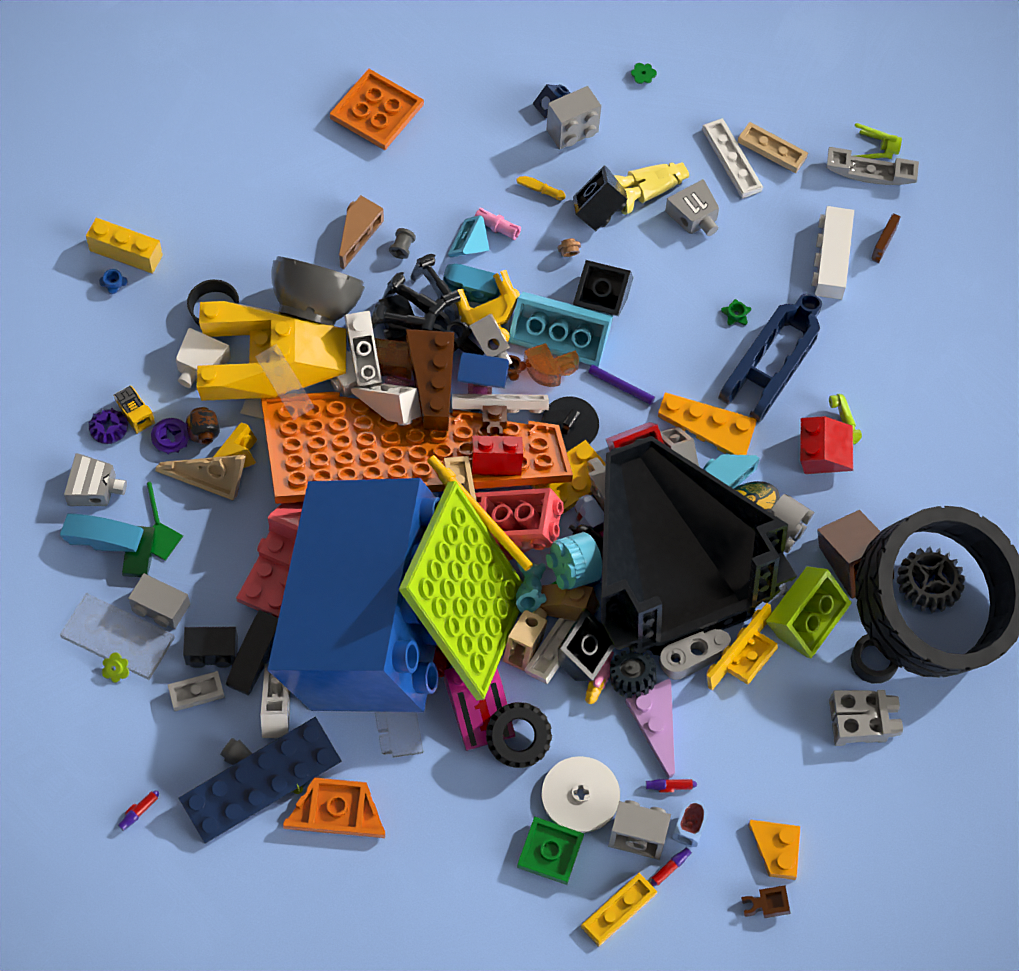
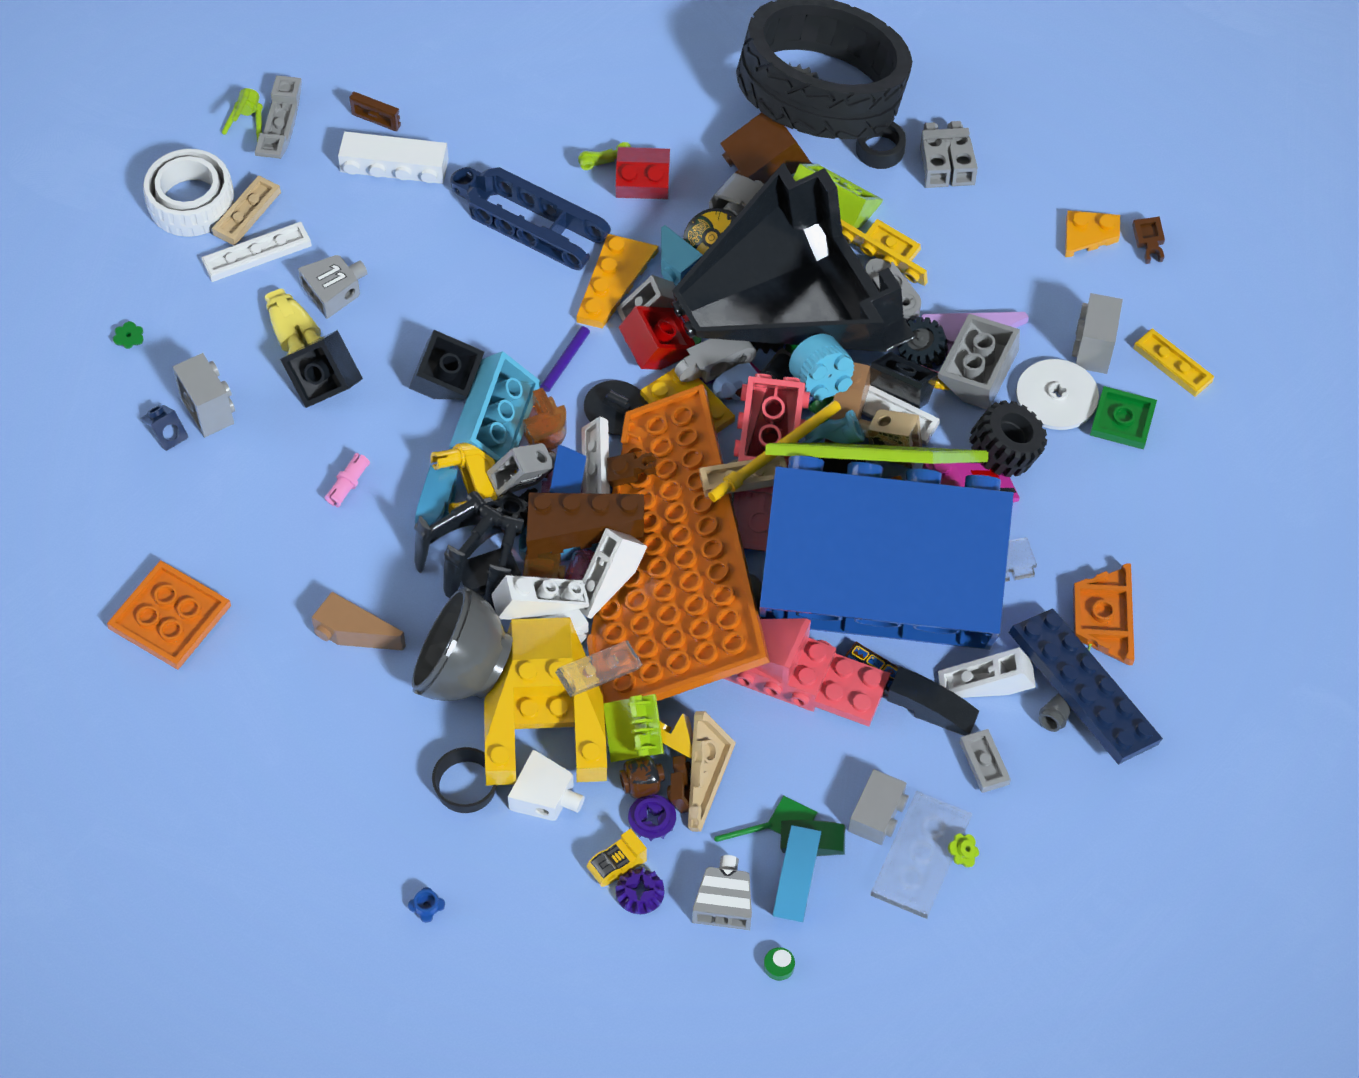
camera: 90 degrees left, 5 degrees down
(32, 522) = (779, 964): none -> green tile
(124, 245) = (377, 890): yellow brick -> none
(137, 810) = (1131, 812): piece -> none
(189, 451) = (679, 790): none -> reddish brown plate
(210, 646) = (929, 748): black brick -> none
(238, 416) = (633, 728): none -> lime hinge
(401, 246) = (375, 577): dark grey bush -> none
(470, 238) = (366, 510): medium azure slope -> none
(496, 455) = (681, 450): red slope -> none
(541, 187) = (294, 436): yellow piece -> none
(569, 247) = (383, 406): medium nougat plate -> none
(609, 720) = (980, 360): none -> light grey slope
(669, 786) = (1038, 321): red piece -> none
(675, 862) = (1131, 324): piece -> none
(690, 823) = (1076, 291): rock -> none
(739, 307) = (467, 246): green plate -> none
(786, 125) = (188, 217): none -> white tyre

